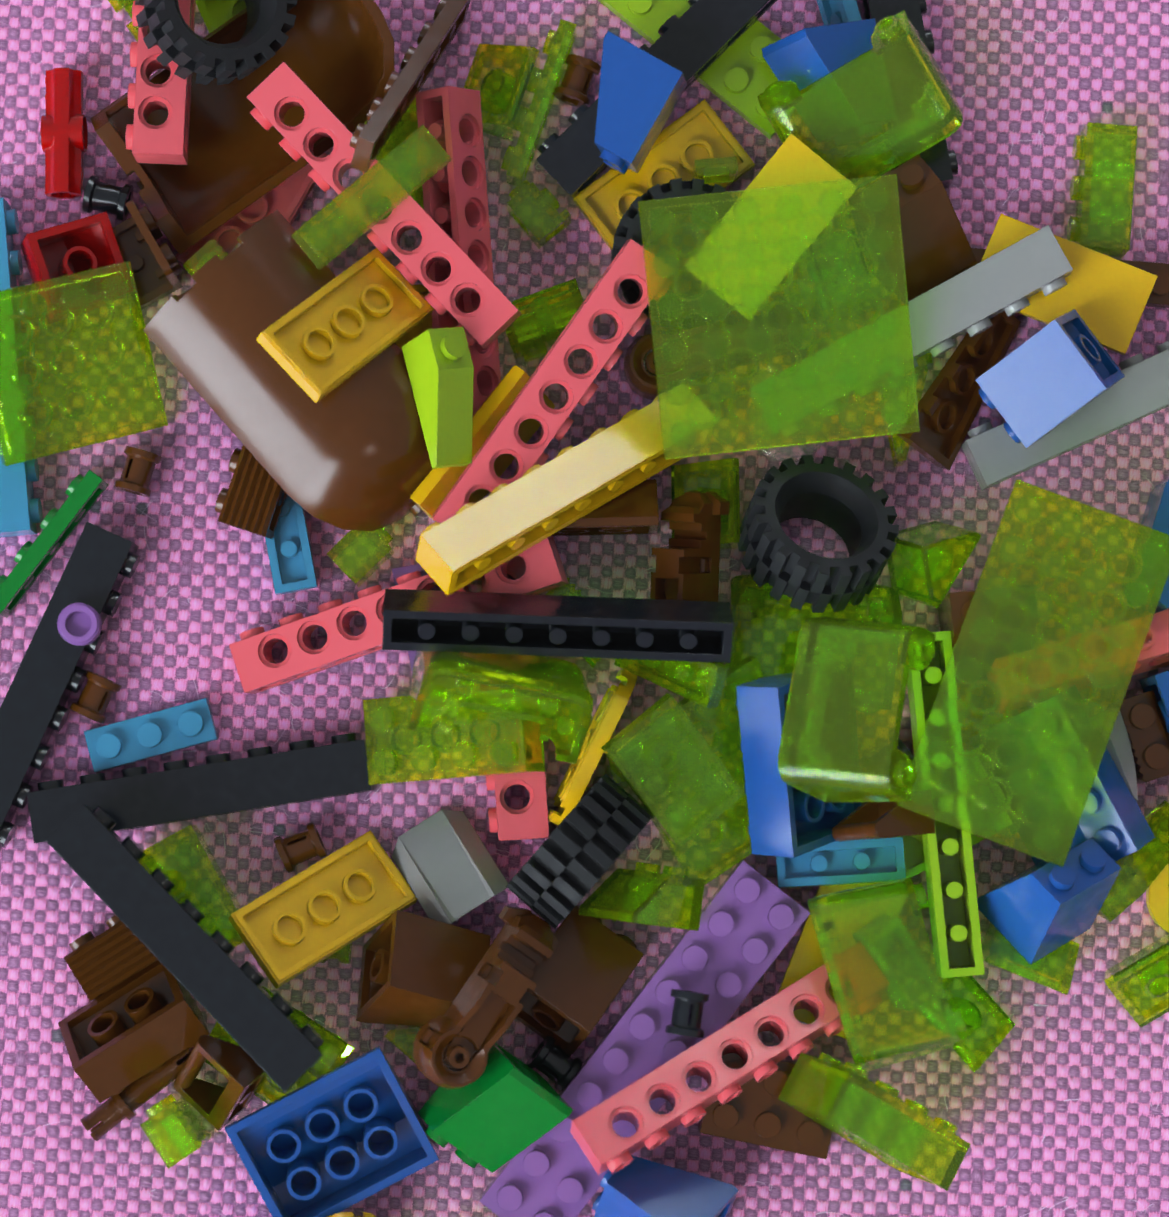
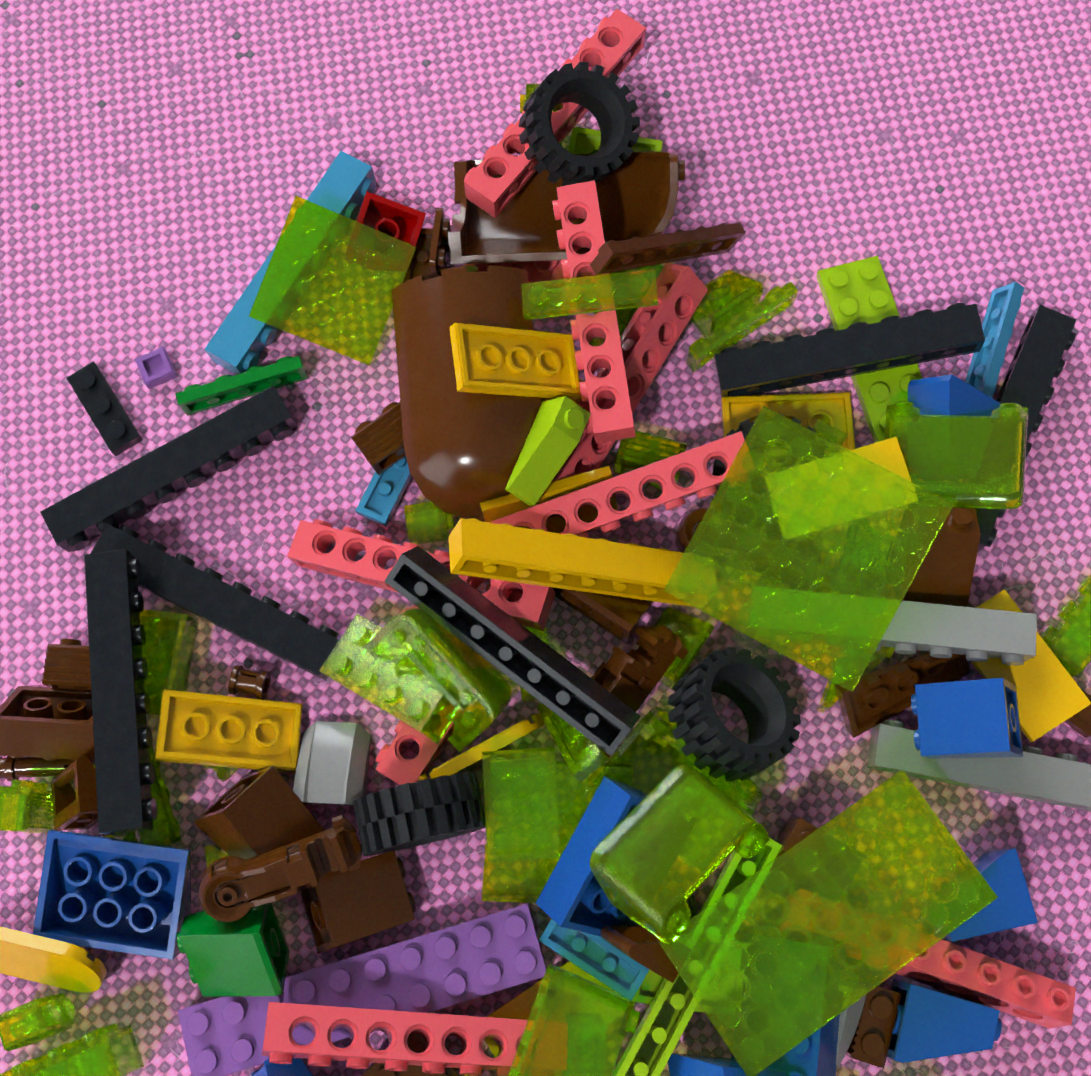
camera: 45 degrees right, 10 degrees down
(64, 133) = (437, 159): red piece -> none
(79, 624) = (219, 442): medium lavender tile -> none
(95, 697) = (198, 497): reddish brown bush -> none
(107, 198) = (428, 203): black bush -> none
(137, 471) = (329, 380): reddish brown bush -> none
(151, 735) = (215, 546): dark azure plate -> none
(537, 212) = (692, 390): clear neon green brick -> none
(554, 1063) = (302, 950): black bush -> none
(577, 80) = (775, 327): reddish brown bush -> none
(633, 102) = (803, 350): blue slope -> none
(648, 897) = (444, 882): clear neon green slope -> none
(687, 1013) = (409, 983): black bush -> none
(929, 560) = (799, 787): clear neon green slope -> none

